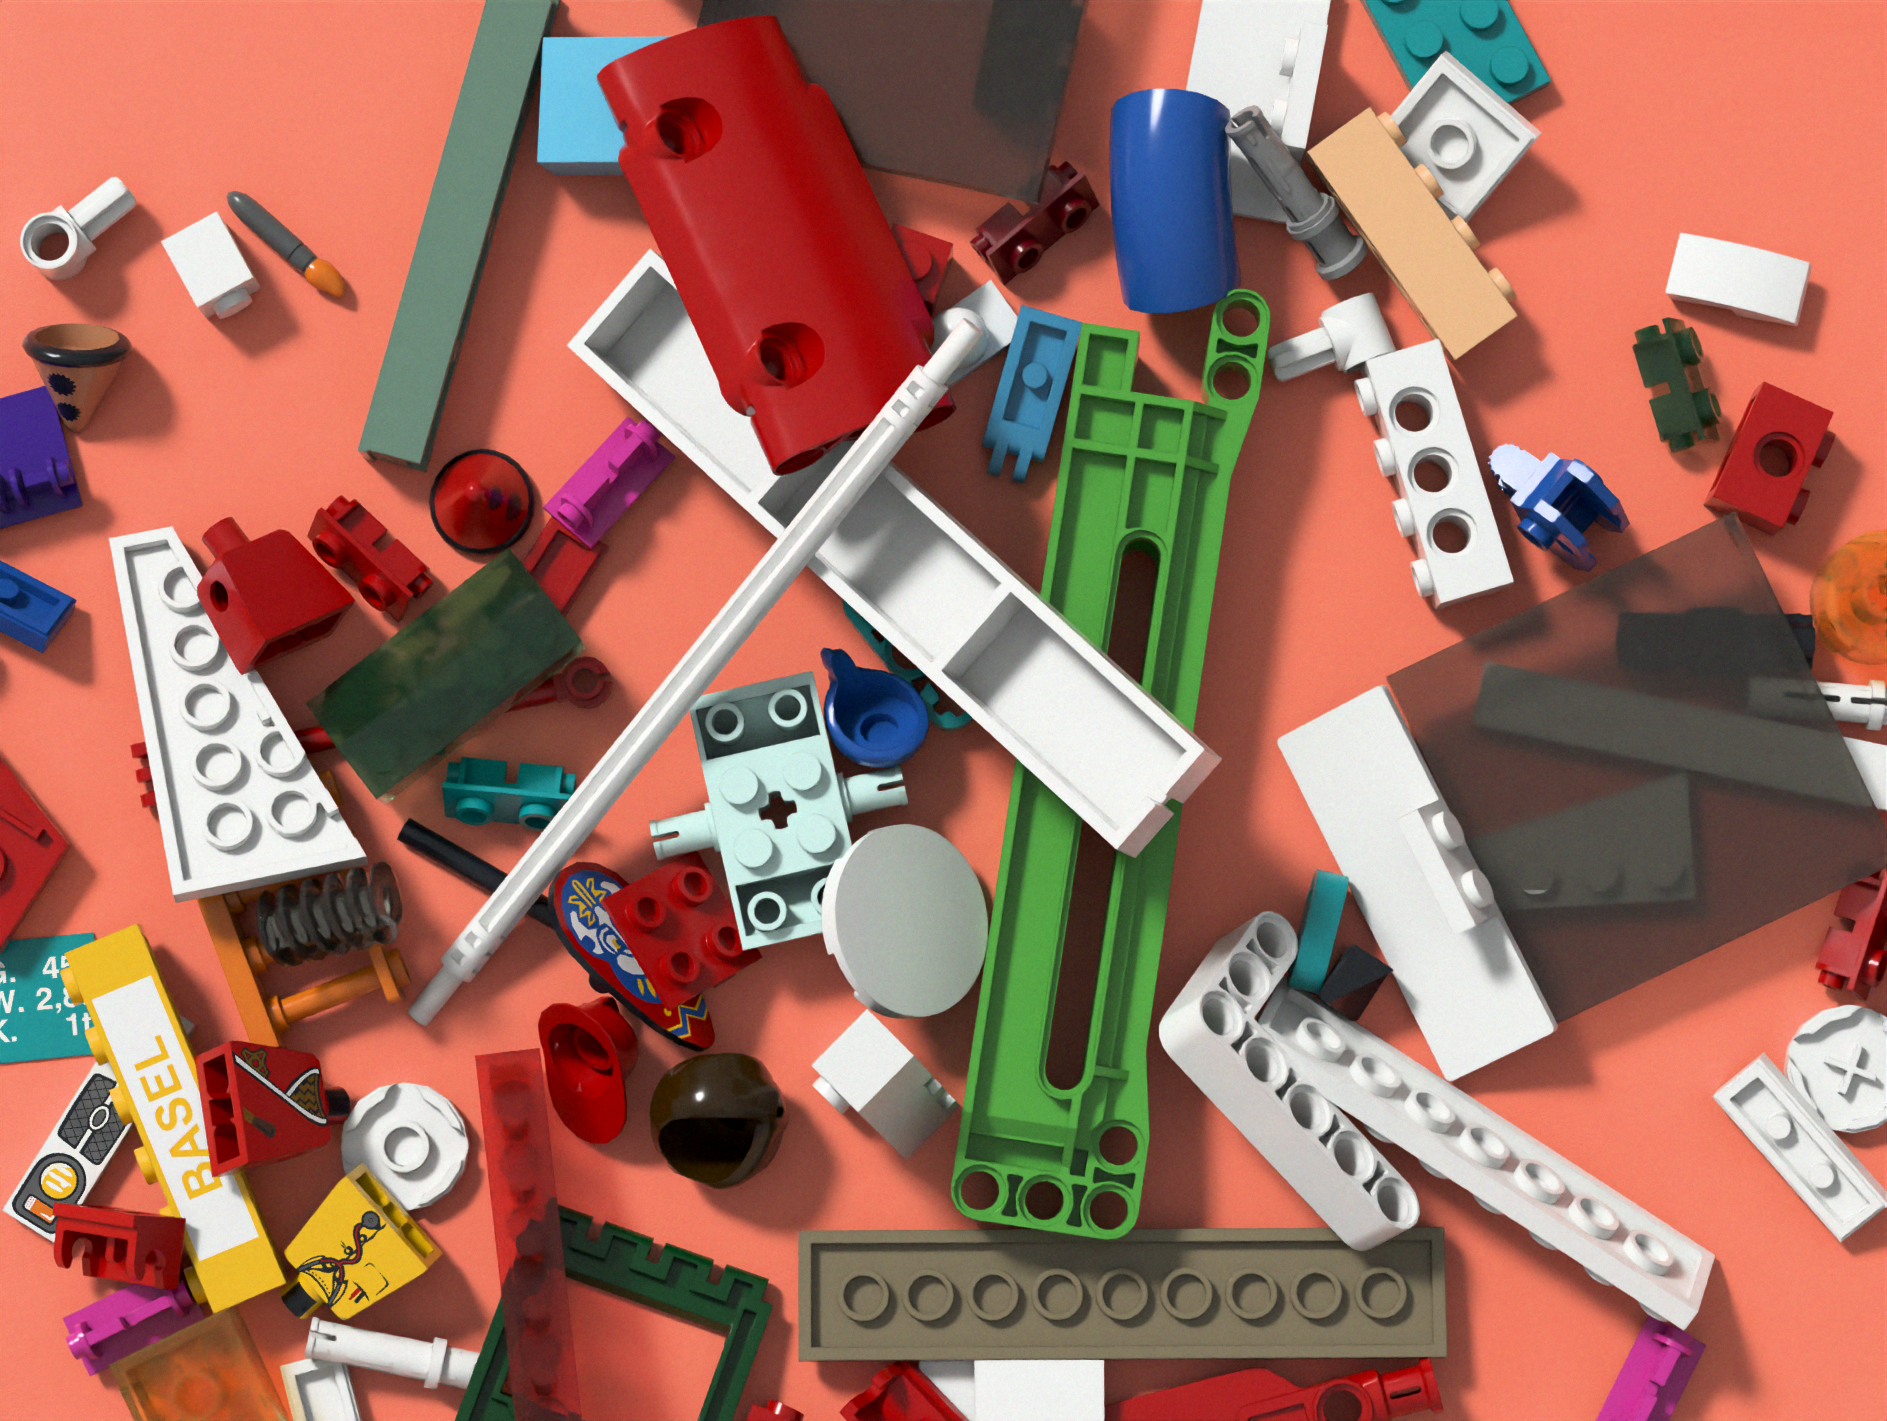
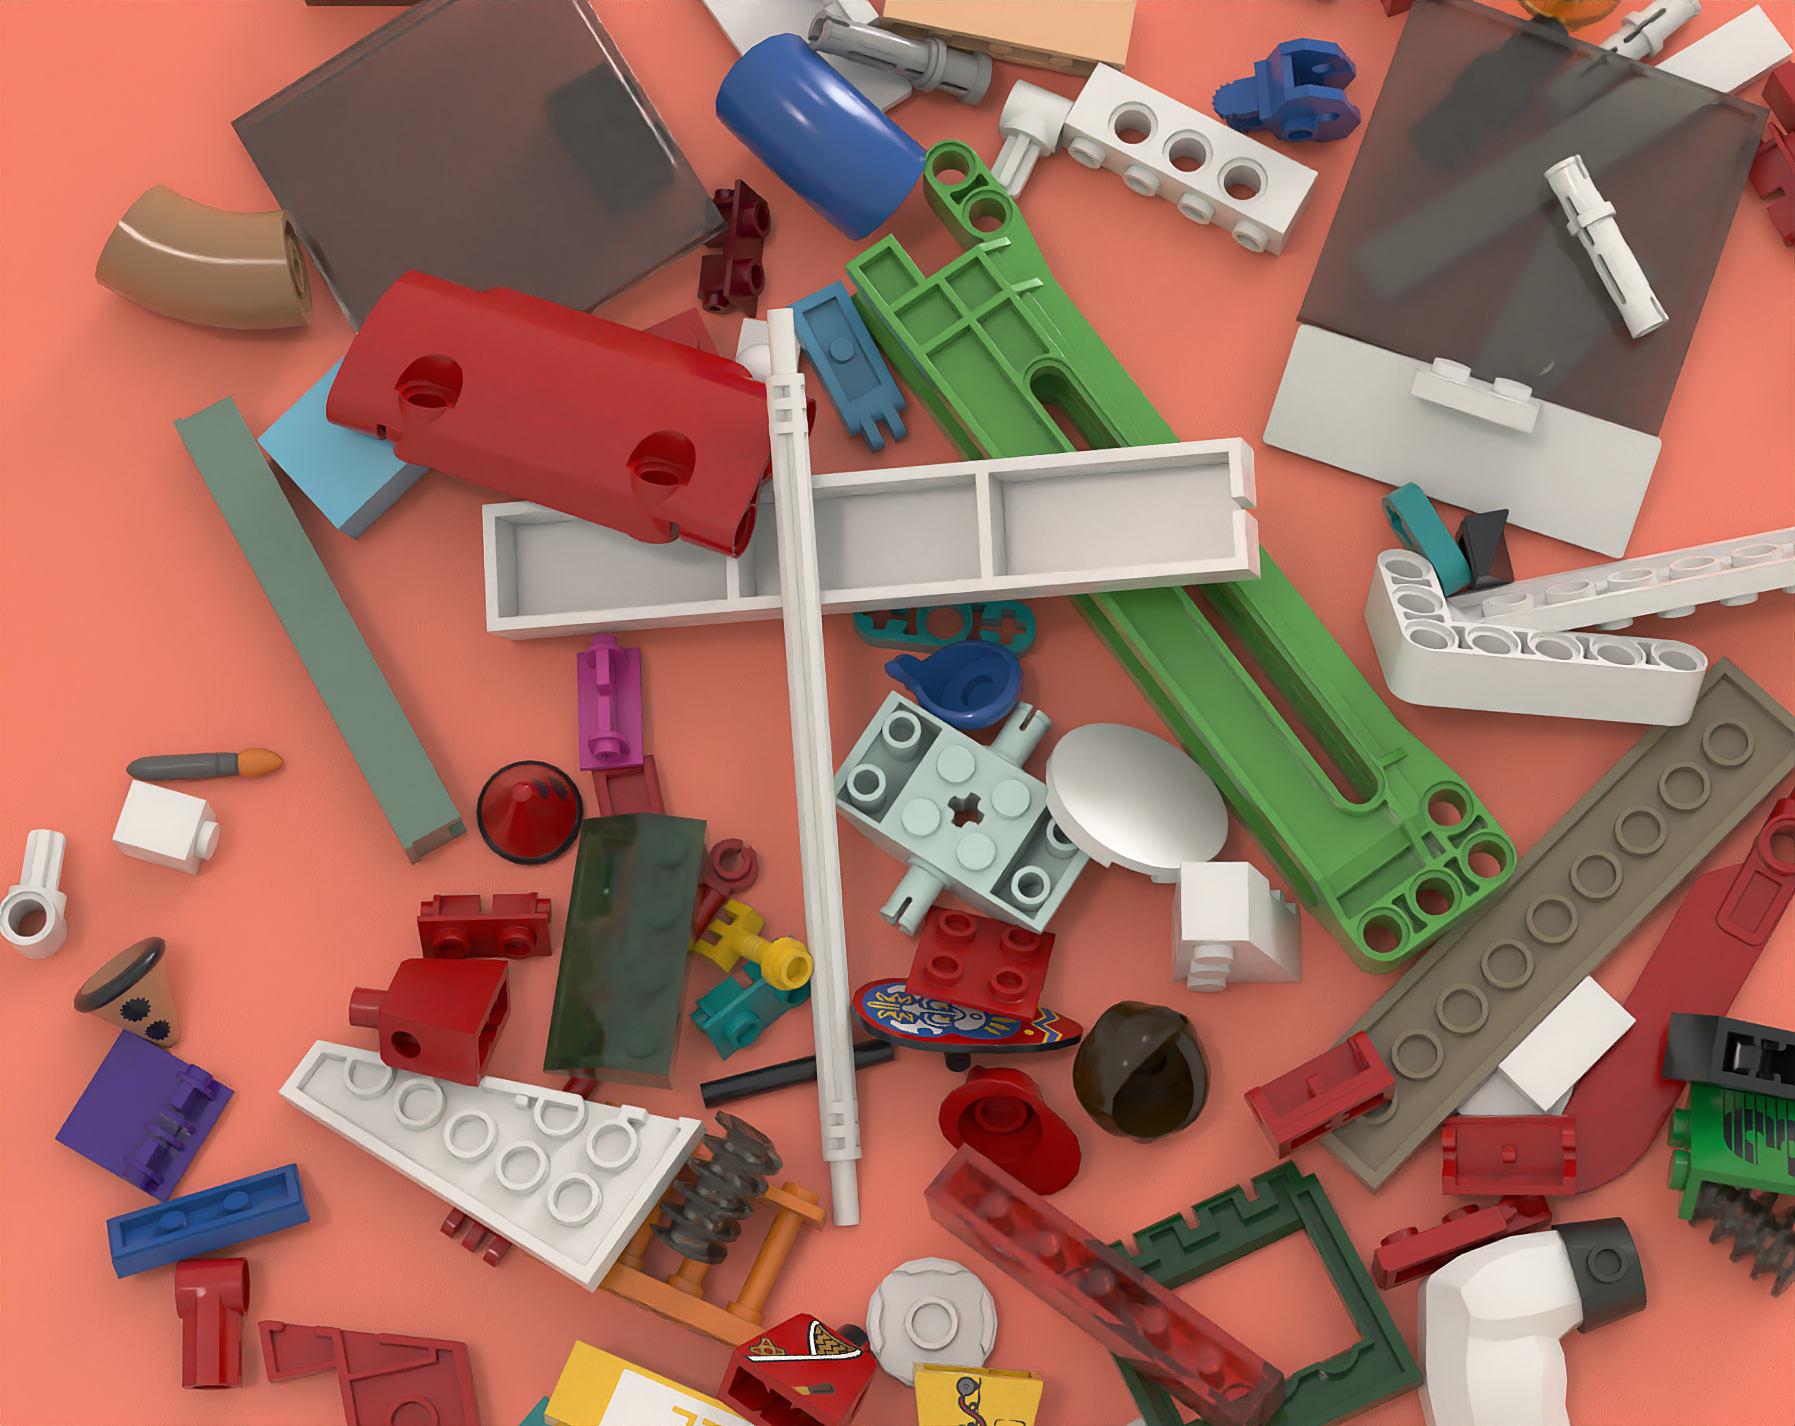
camera: 40 degrees left, 10 degrees down
(539, 794) = (783, 963): none -> yellow hinge
(825, 1256) = (1321, 1095): none -> red hinge
(1661, 858) = (1594, 225): none -> white pin

